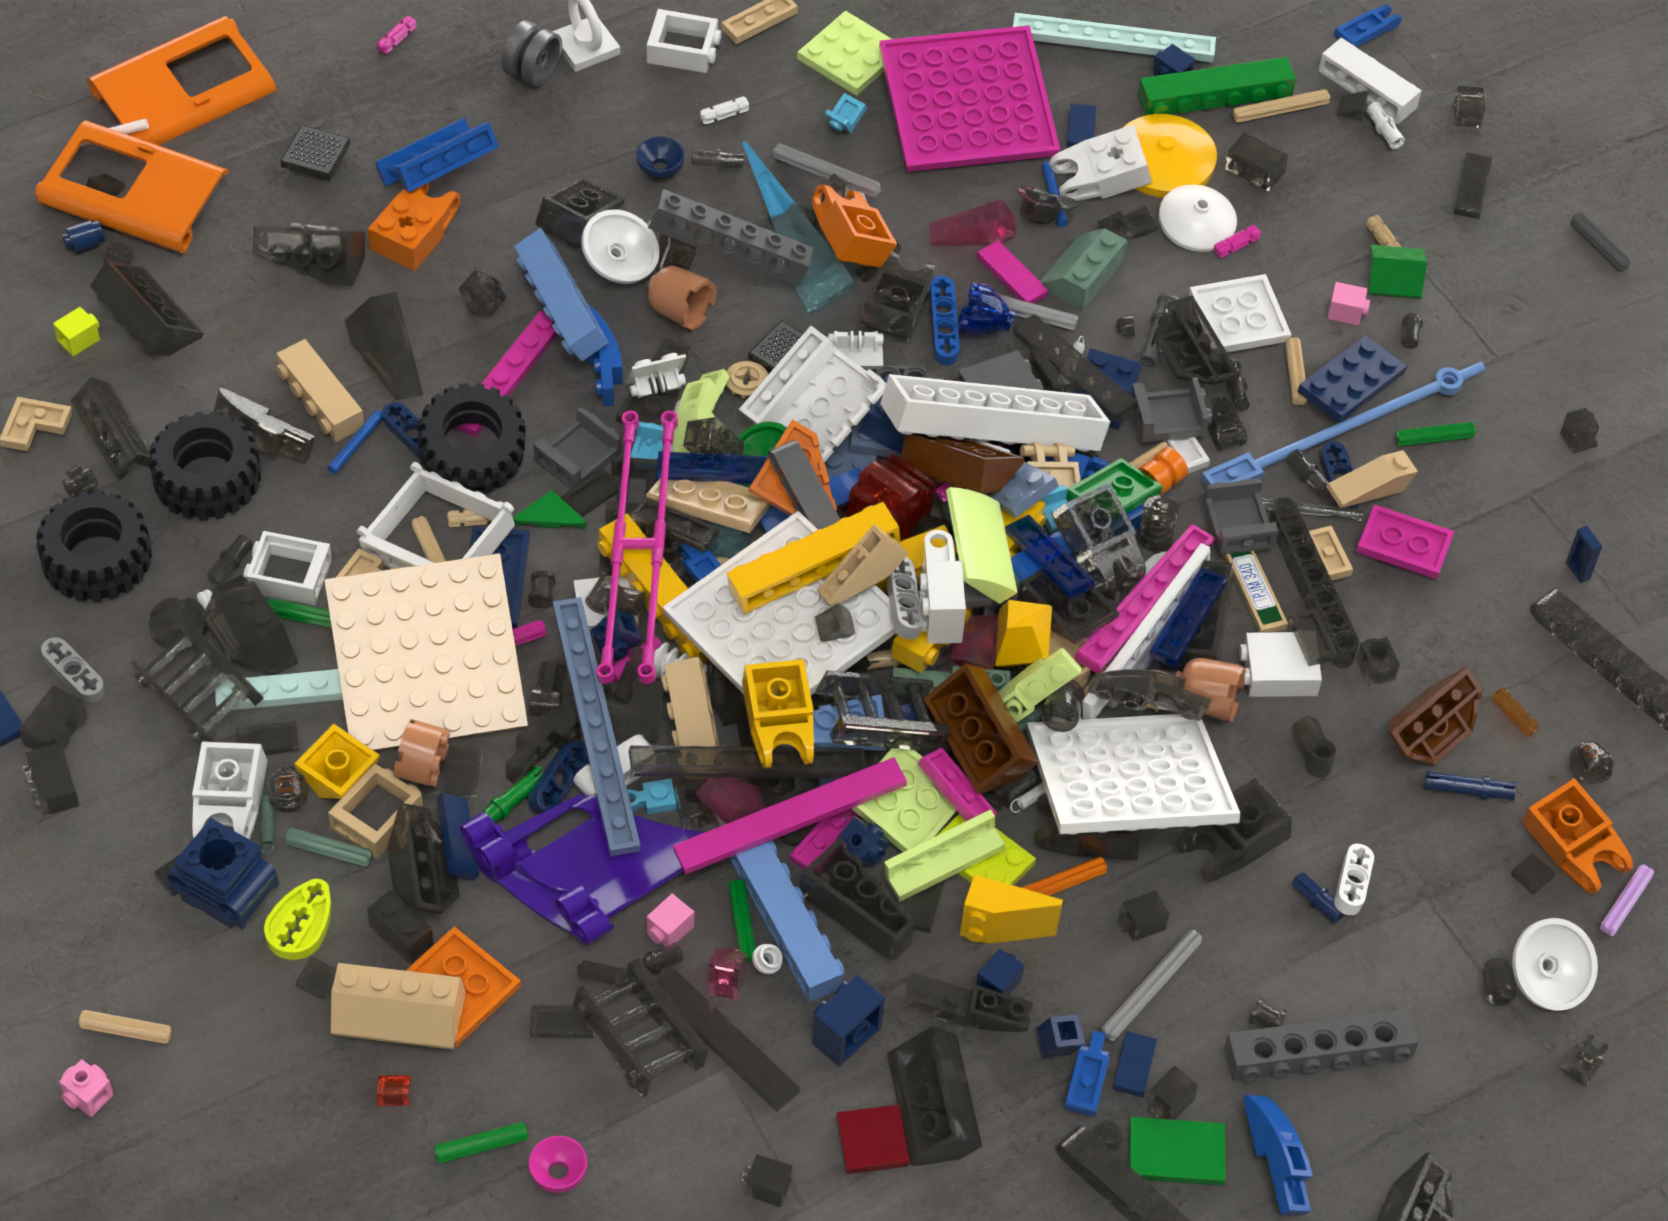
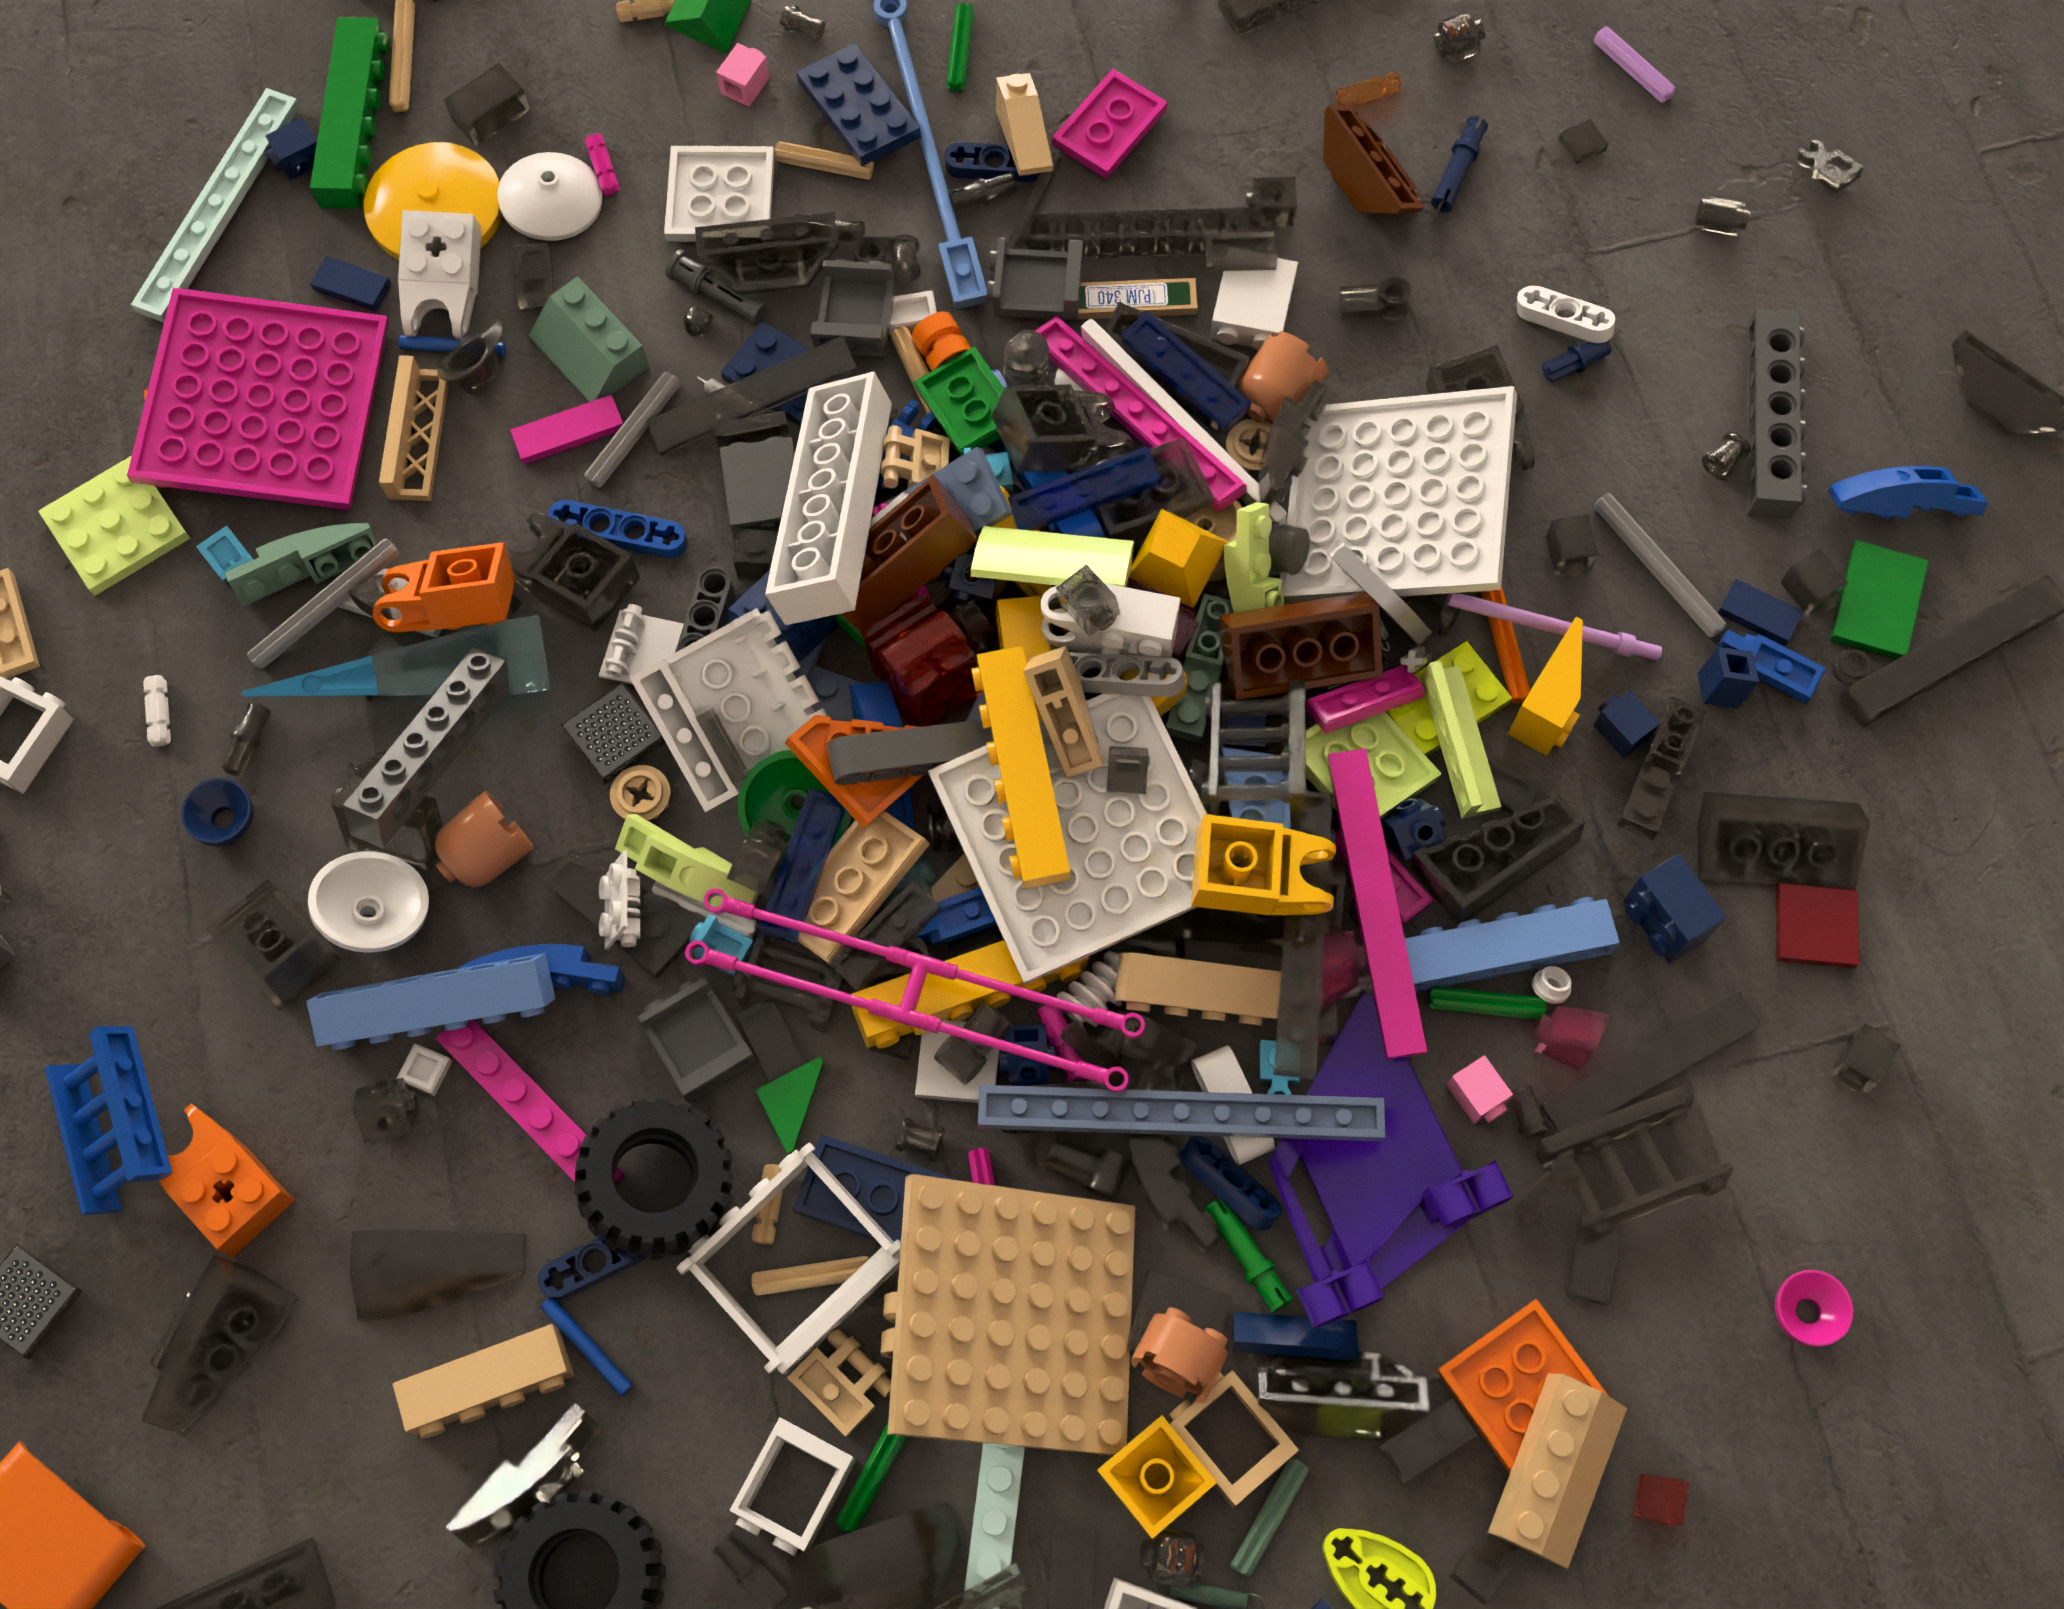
camera: 70 degrees left, 15 degrees up
(480, 1142) = (1756, 1401): green axle -> none
(518, 312) = (424, 1069): none -> white tile
(789, 401) = (722, 745): none -> clear smoke tile
(855, 147) = (311, 553): none -> sand green slope
(938, 547) = (1087, 586): none -> clear smoke brick
(975, 182) = (400, 432): none -> tan fence
(975, 226) = (480, 452): clear pink slope -> none
(985, 312) = (630, 476): clear blue piece -> none
(1003, 818) = (1416, 659): none -> light grey axle
(1029, 772) = (1380, 592): none -> light grey beam
(1069, 964) = (1621, 644): none -> lavender bar
(1331, 553) = (1105, 199): tan plate -> none
(1569, 961) = (1719, 152): white dish -> none
(1576, 835) = (1552, 80): orange brick -> none

